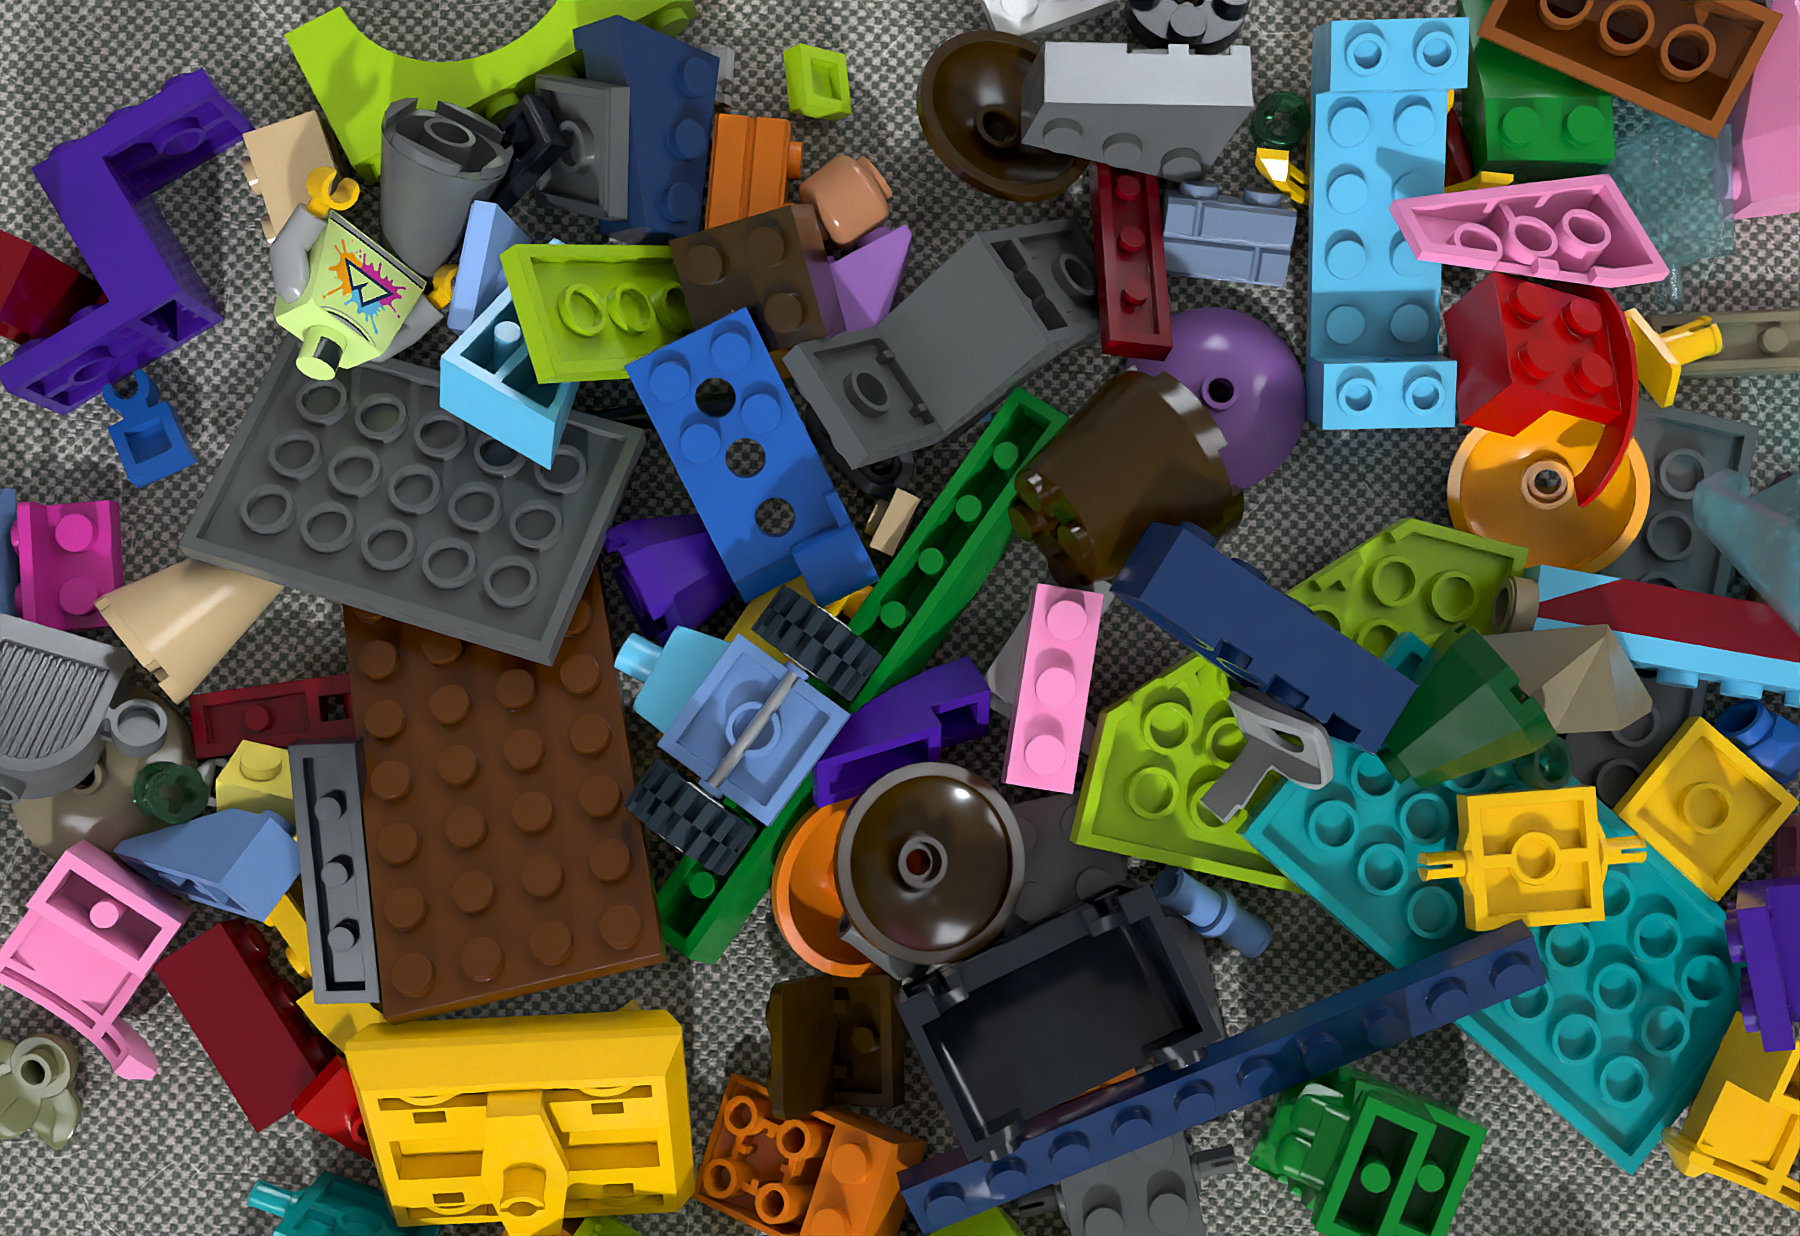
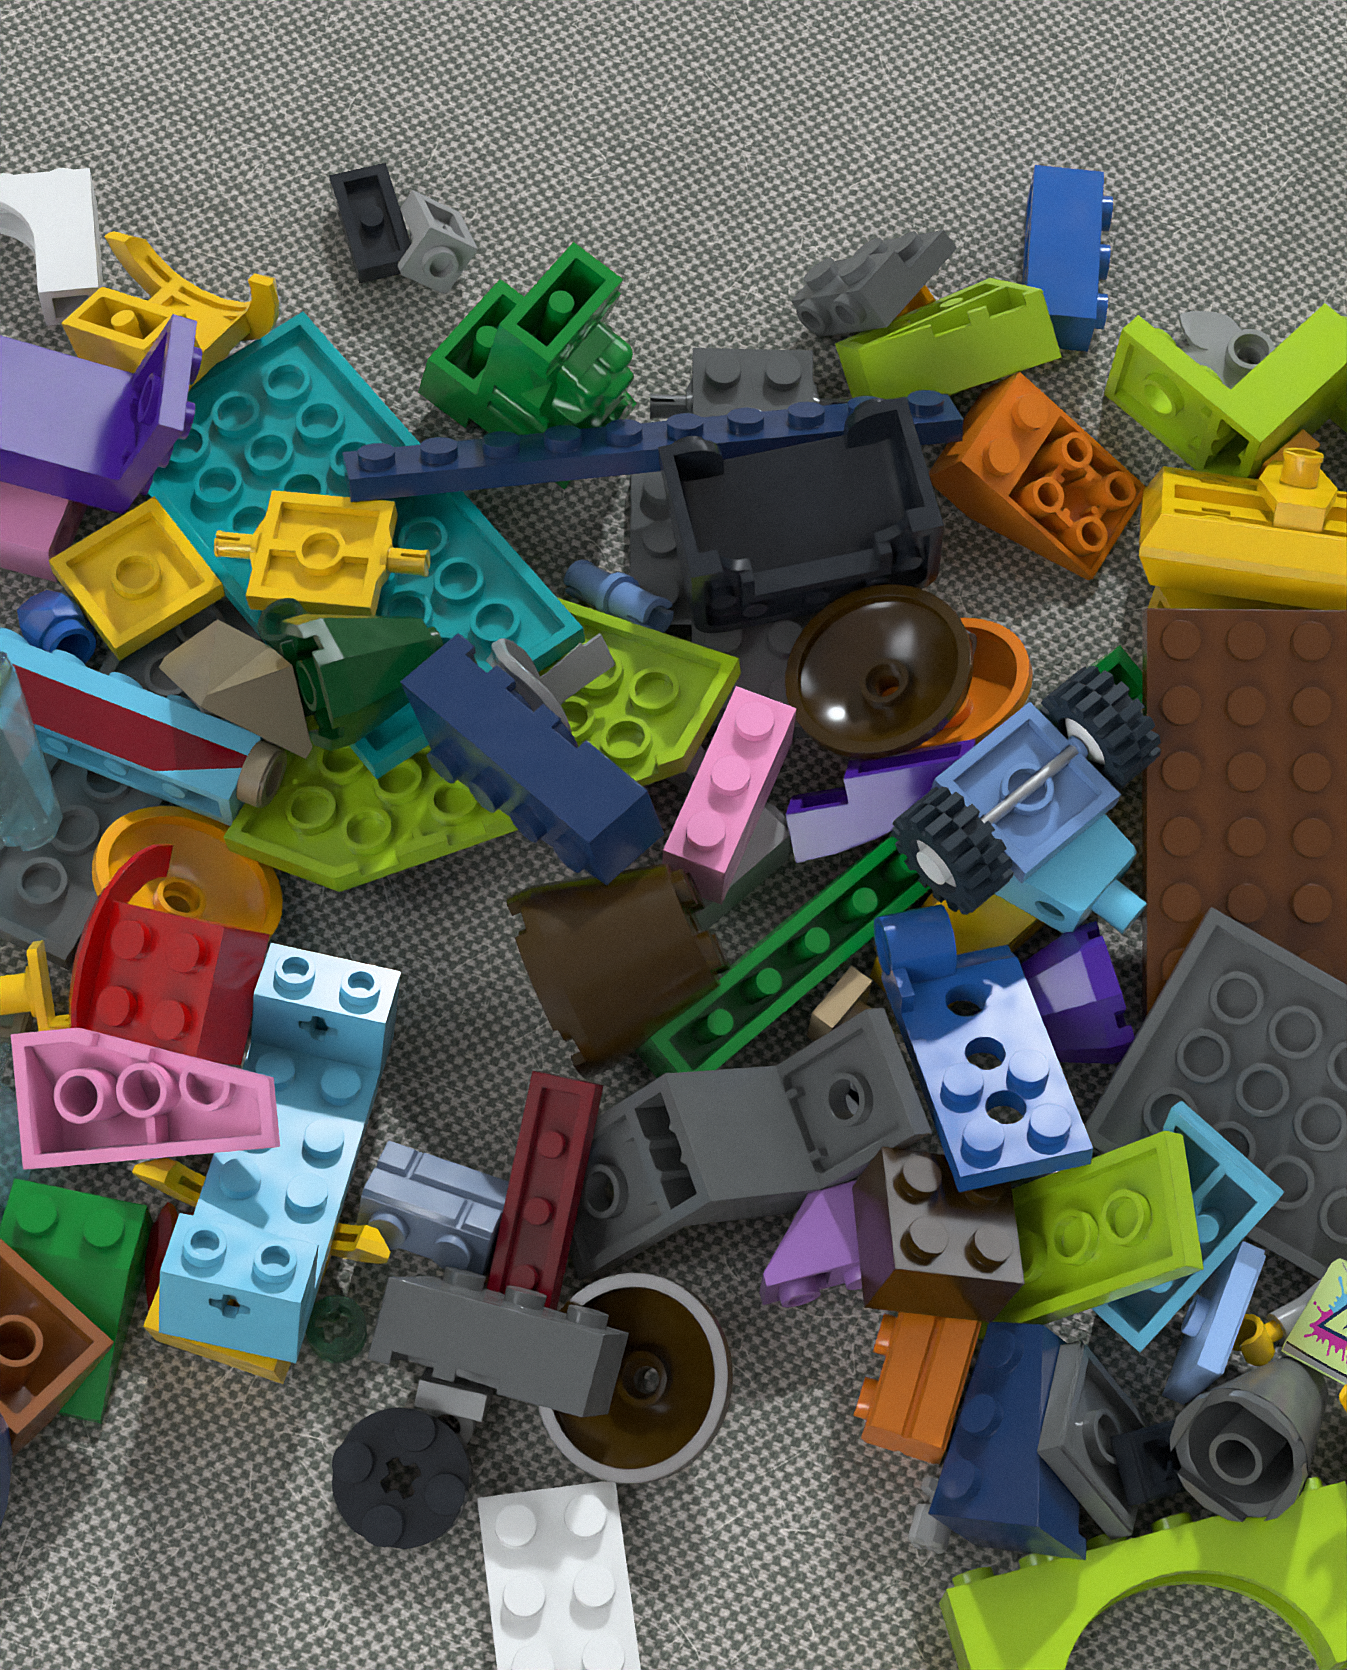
camera: 170 degrees left, 20 degrees down
(817, 82) = (825, 1476): lime plate -> none
(834, 1044) = (996, 568): dark brown bracket -> none
(847, 199) = (824, 1337): nougat head -> none
(1262, 379) = (451, 1098): medium lavender dish -> none

